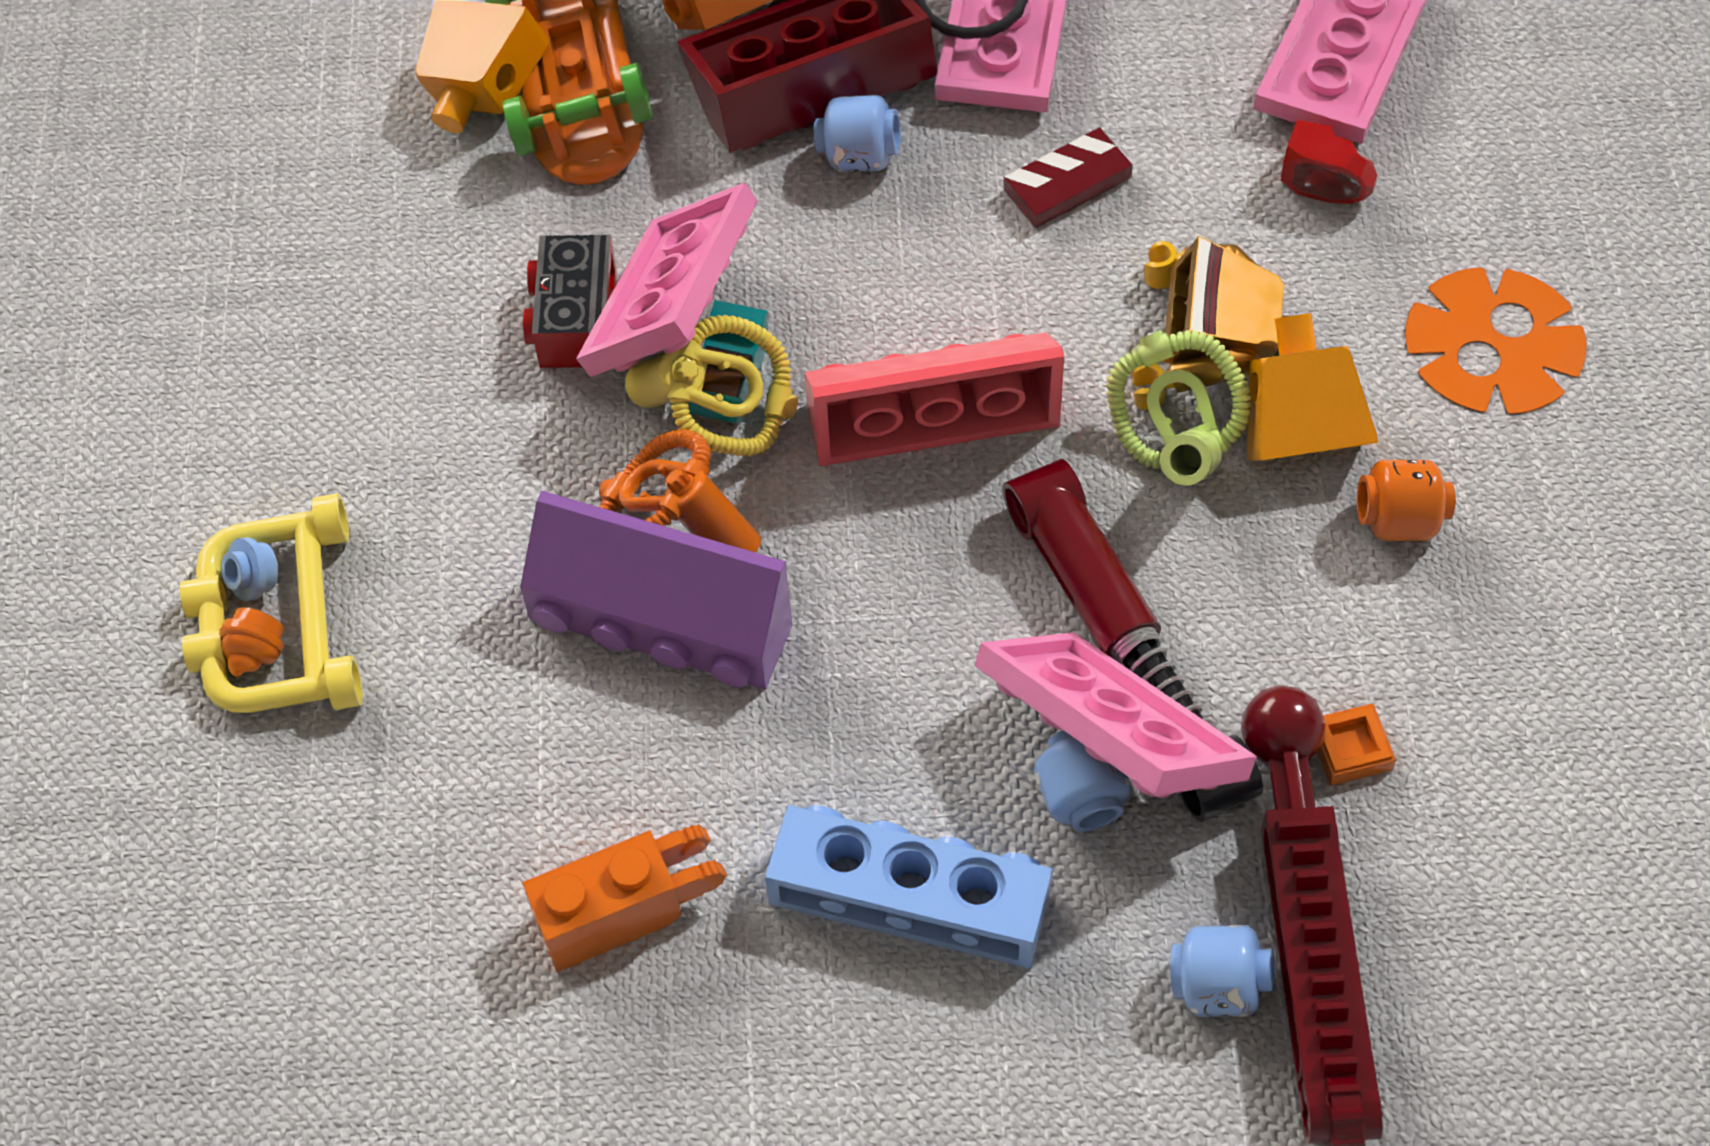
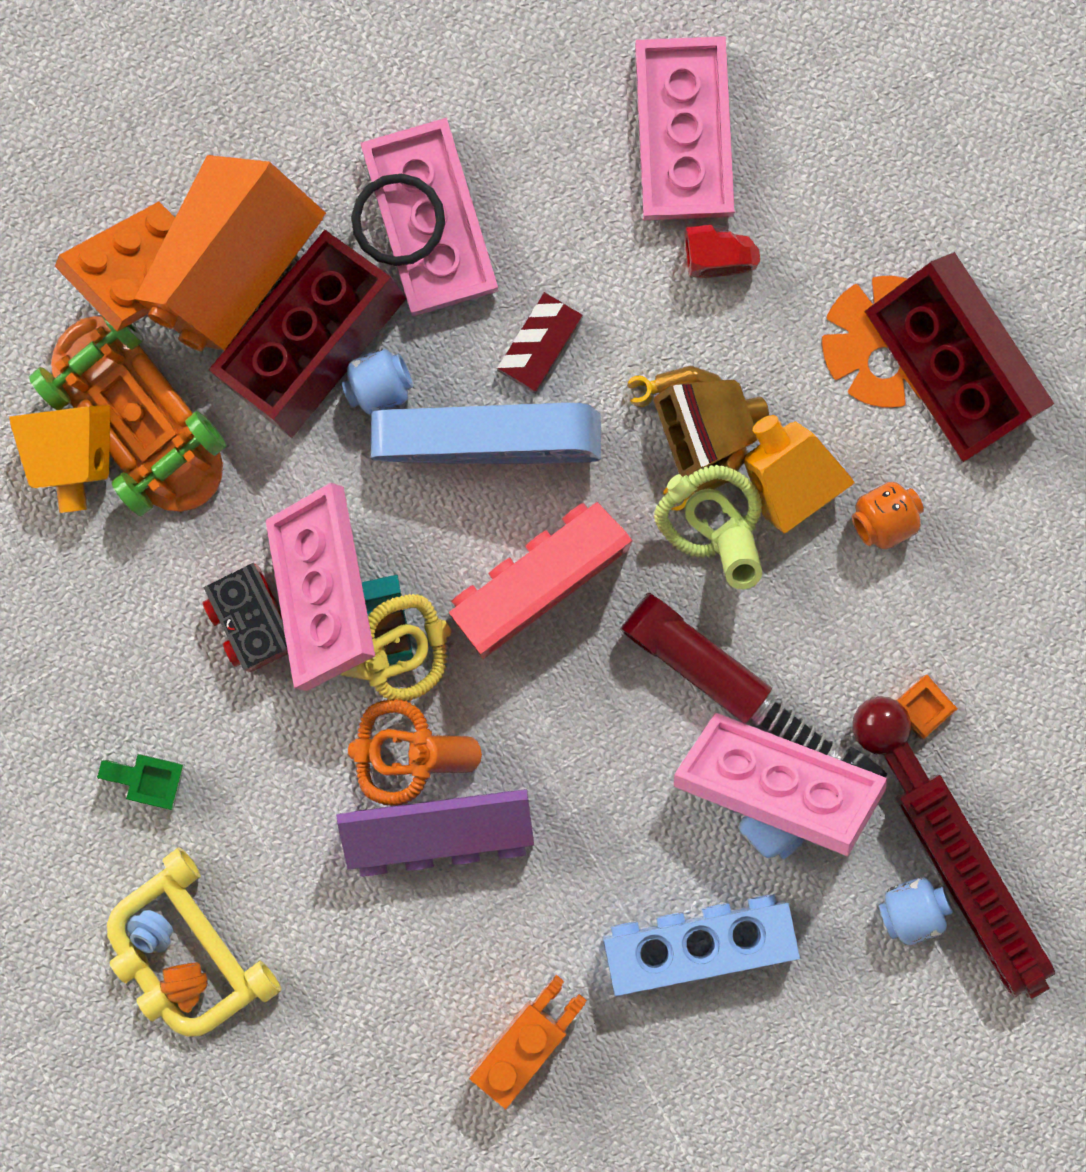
camera: 30 degrees left, 25 degrees up
(352, 416) = (149, 781): none -> green plate
(963, 224) = (488, 434): none -> light blue beam
(1578, 375) = (958, 356): none -> dark red slope

